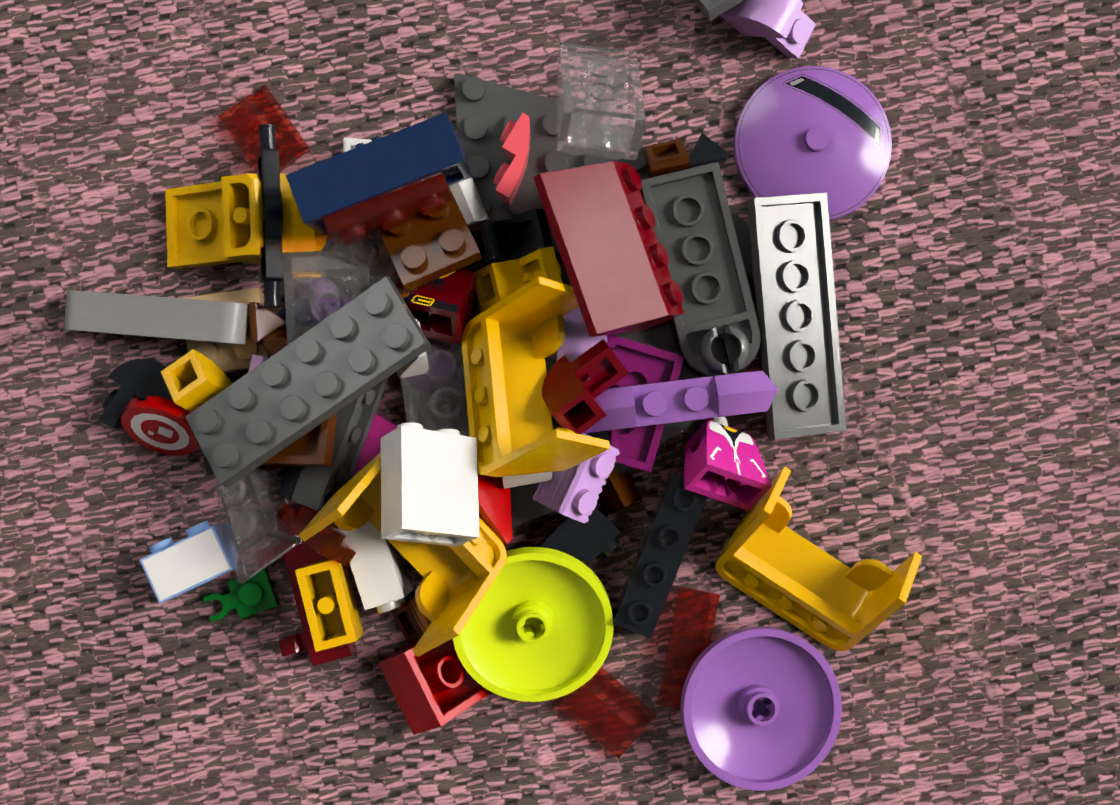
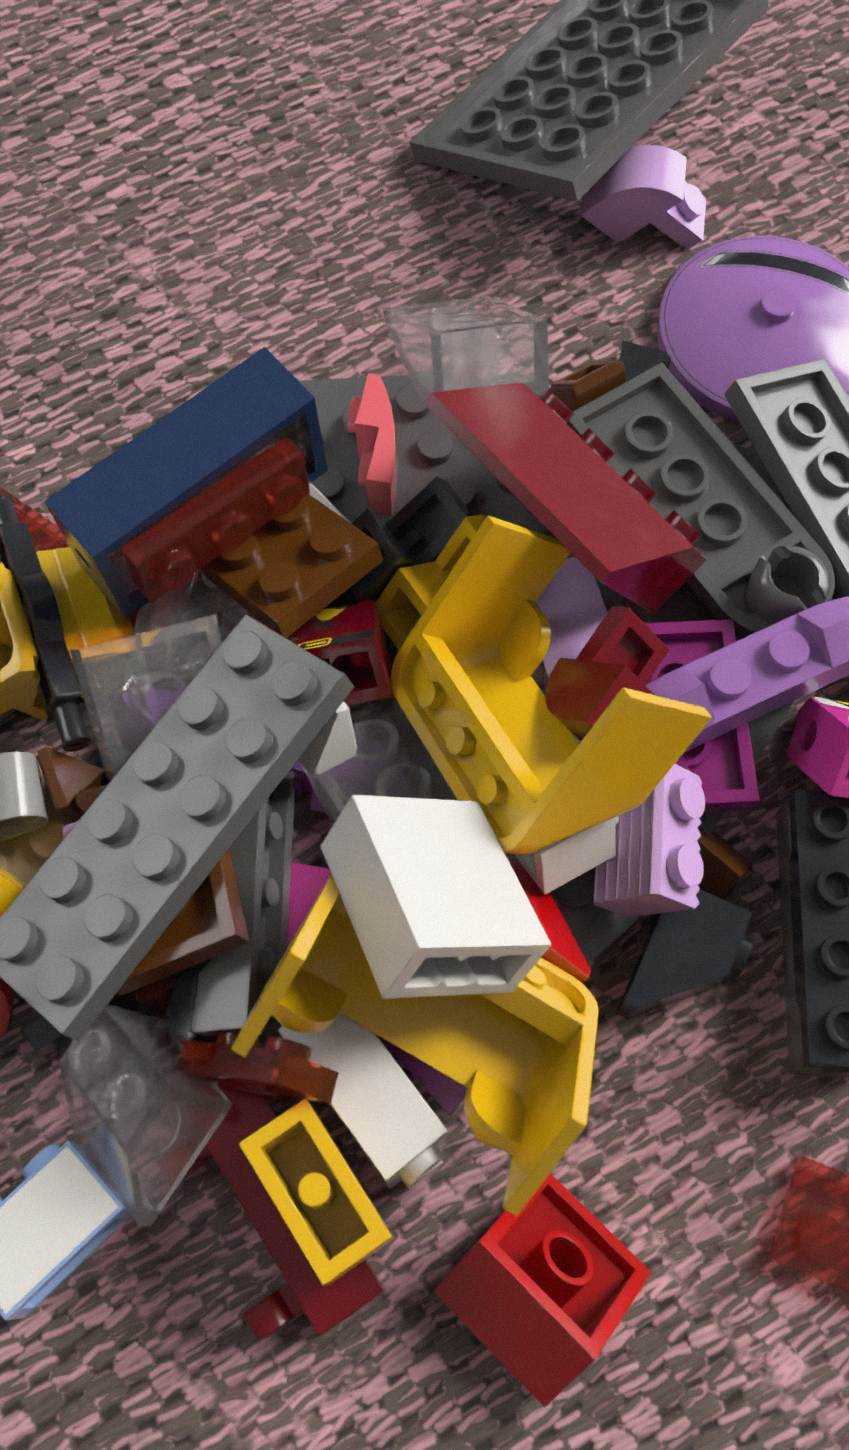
camera: 20 degrees left, 20 degrees down
(248, 597) = (161, 1259): green plate -> none
(411, 620) = (465, 1193): reddish brown slope -> none
(538, 627) = (691, 1127): neon yellow dish -> none

